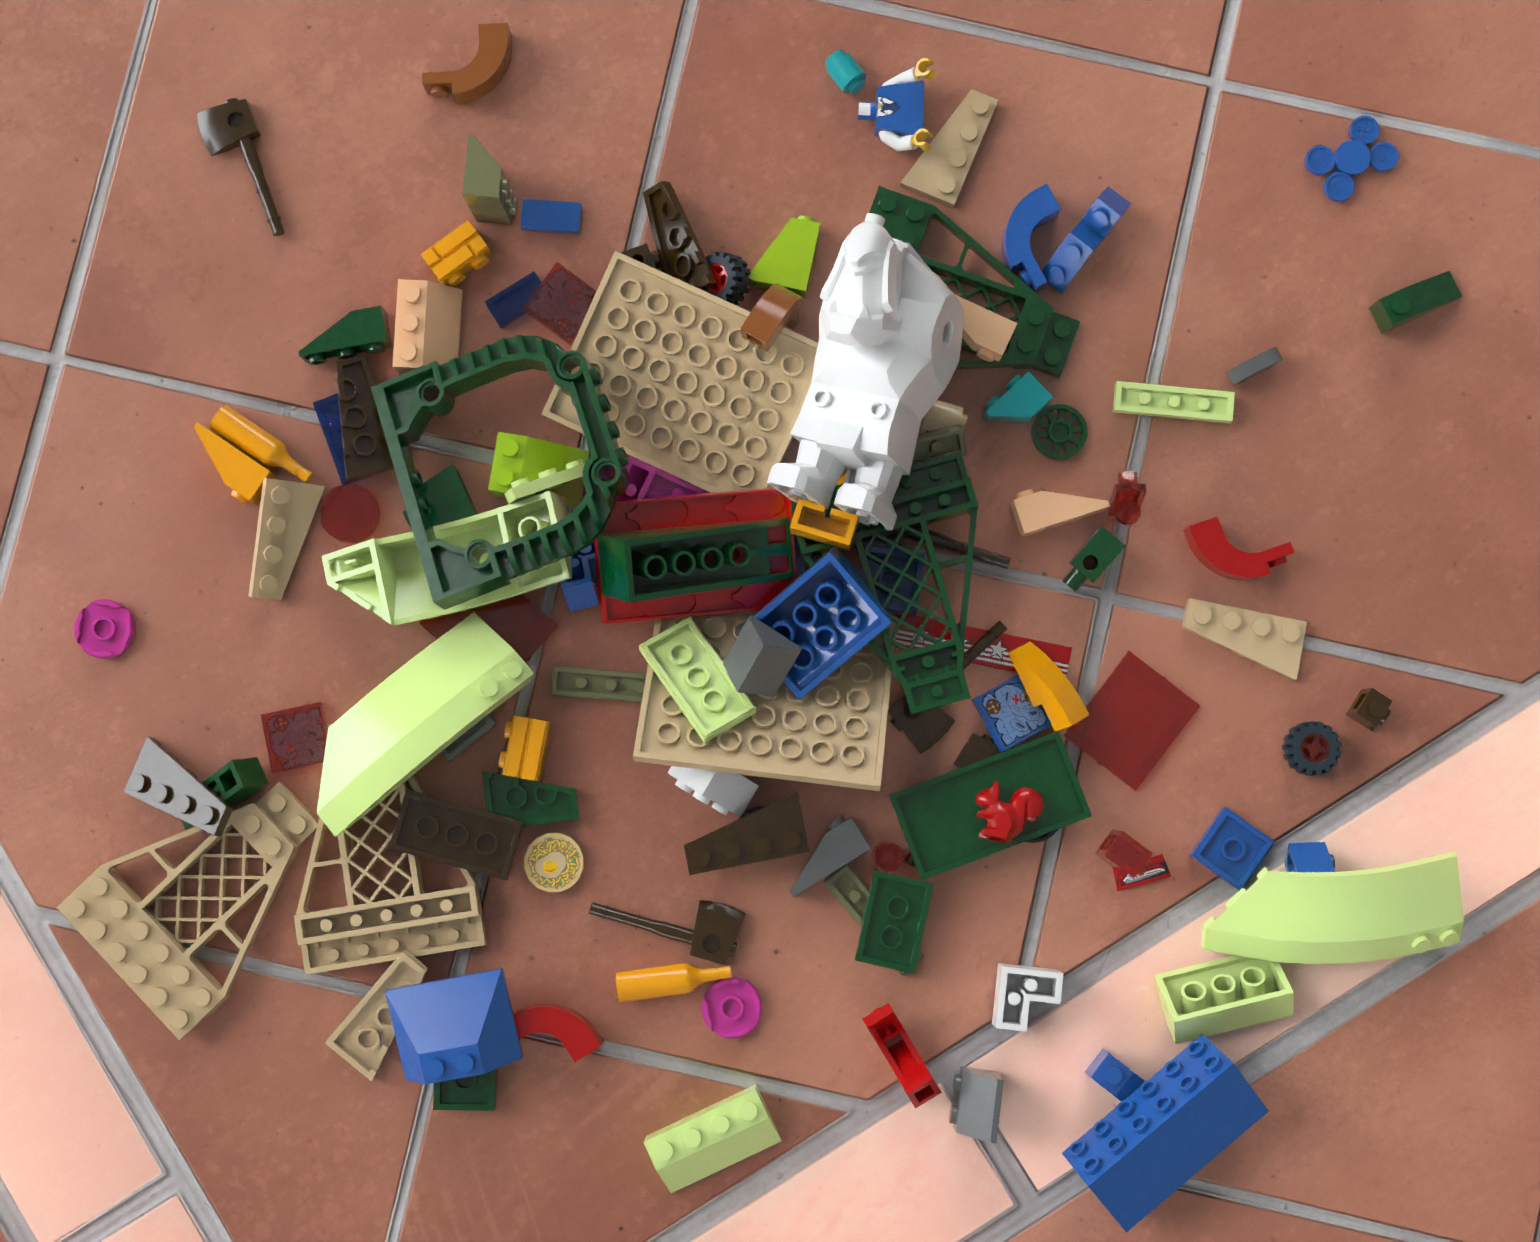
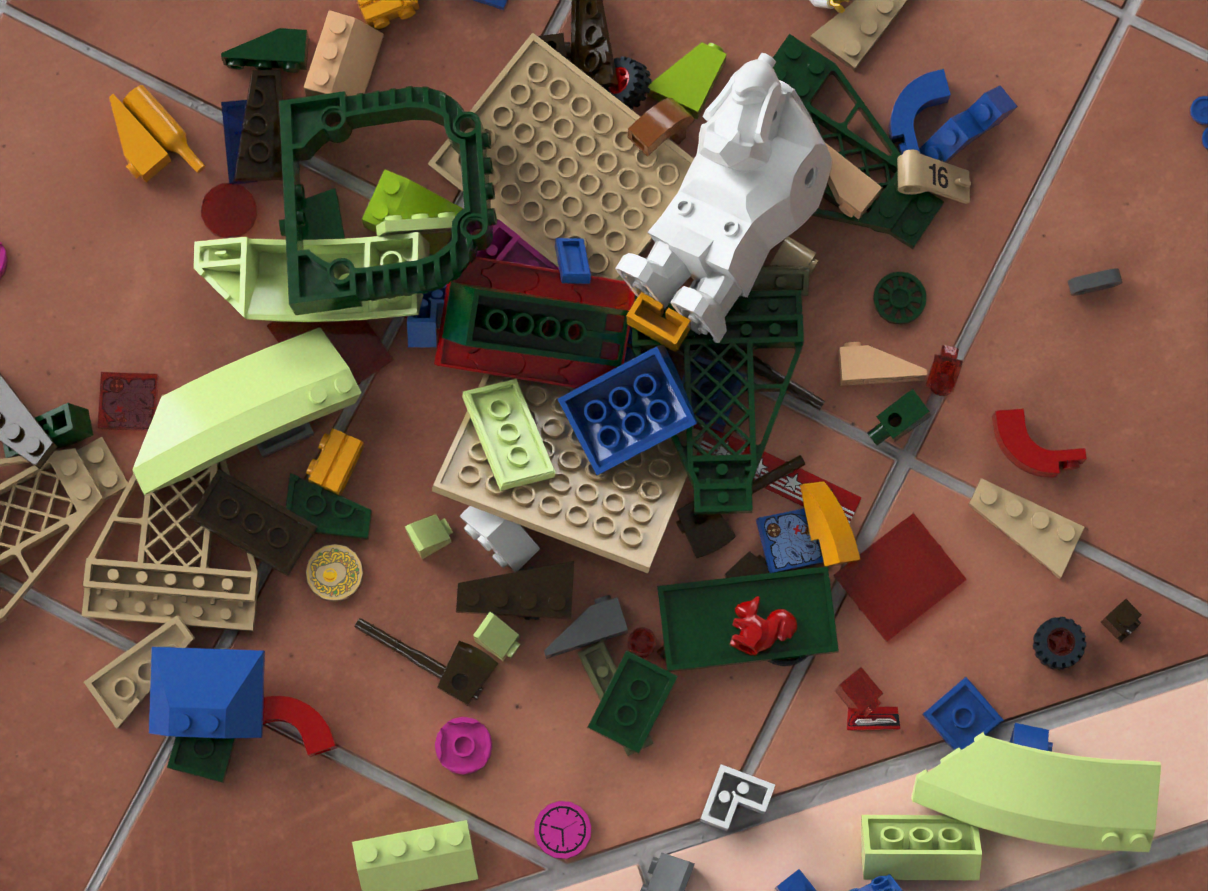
camera: 10 degrees right, 5 degrees down
(281, 530) = (163, 210): tan wing -> none
(508, 303) = (432, 55): clear blue tile -> none
(561, 303) = (471, 68): clear red tile -> none
(597, 684) = (415, 421): olive tile -> none
(641, 800) = (429, 535): none -> yellowish green slope
(665, 980) = (408, 704): light orange piece -> none
(717, 480) = (572, 260): none -> blue tile
(739, 890) = (497, 637): none -> yellowish green slope
(760, 659) = (570, 429): dark grey slope -> none
(855, 1069) = (562, 830): none -> dark pink tile
(901, 1055) = (608, 823): red arch -> none
(1020, 403) = (869, 261): teal slope -> none
(1057, 297) = (922, 174): none -> tan door
(1173, 402) = (1011, 296): yellowish green plate -> none

